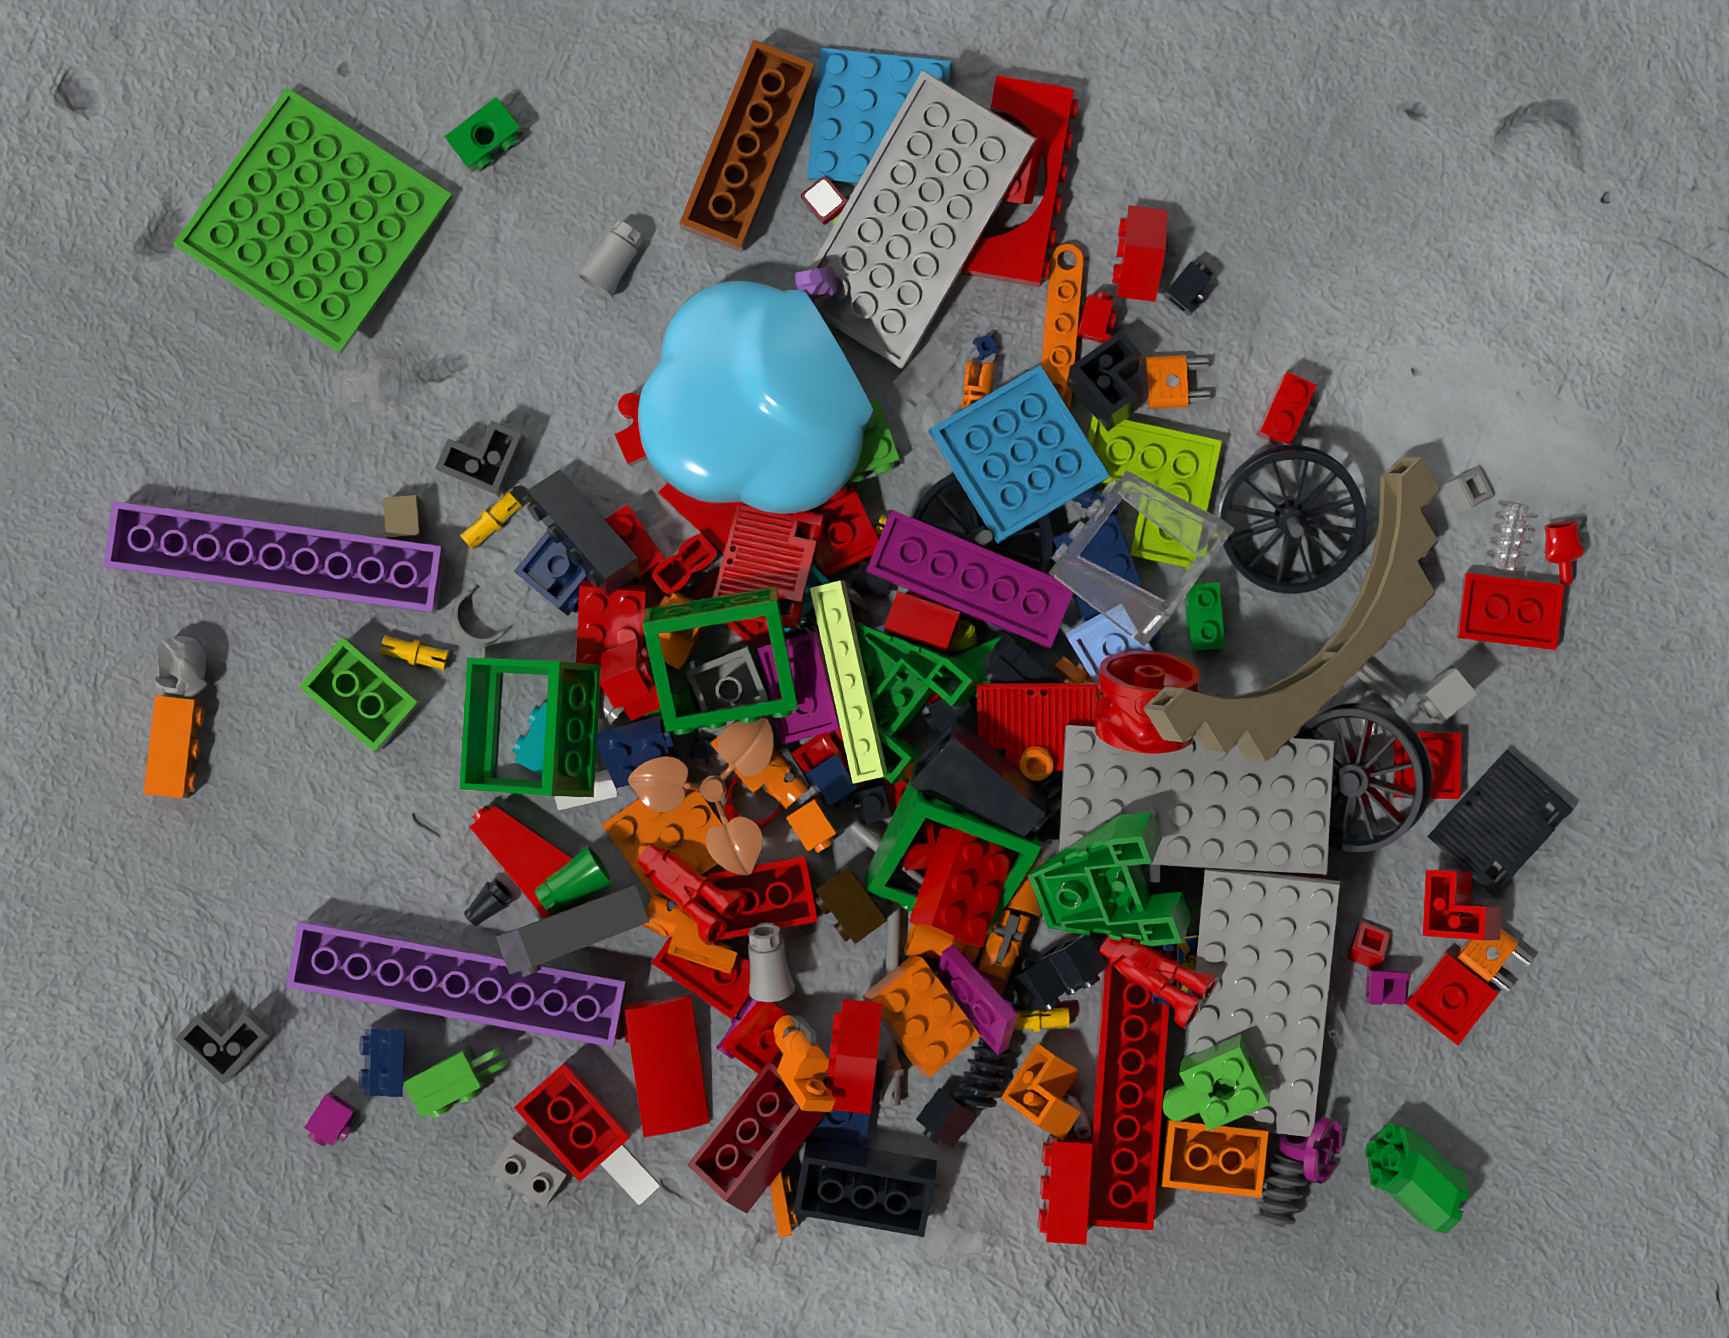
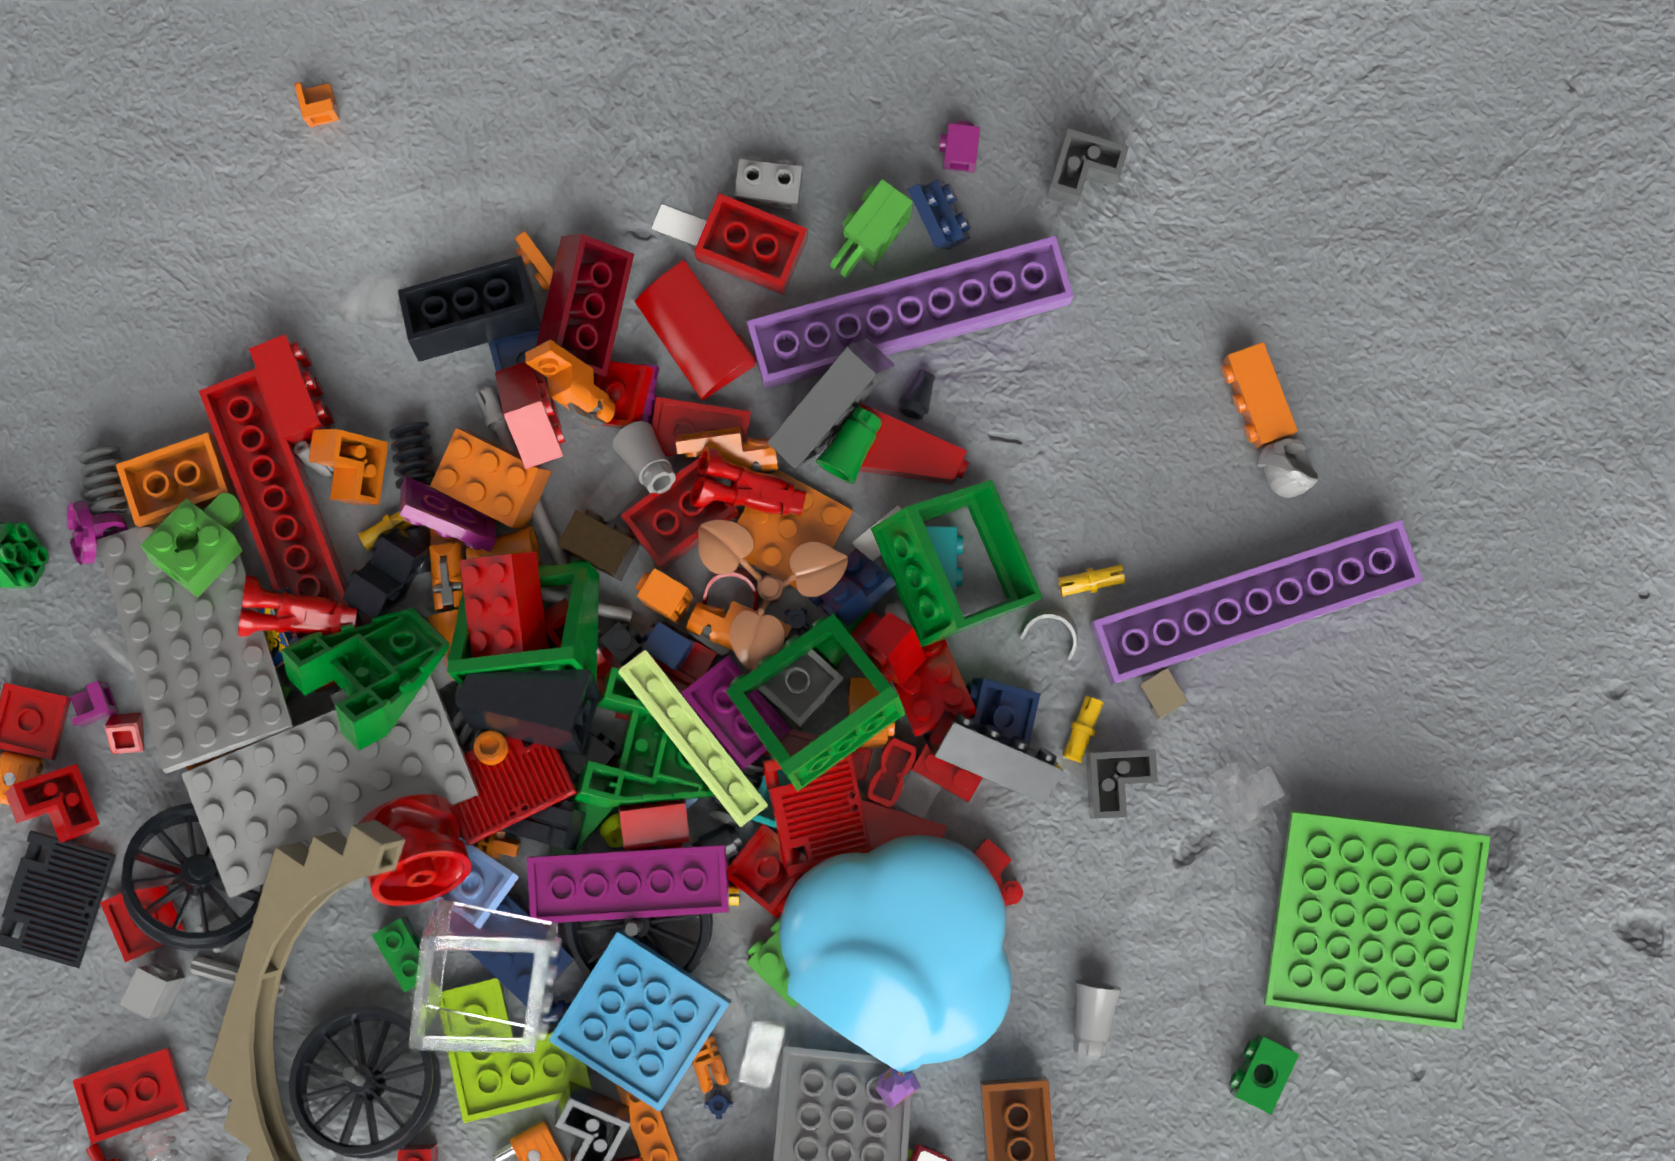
camera: 155 degrees right, 5 degrees down
(360, 694) = (1119, 519): bright green brick -> none
(945, 1118) = (429, 401): black brick -> none

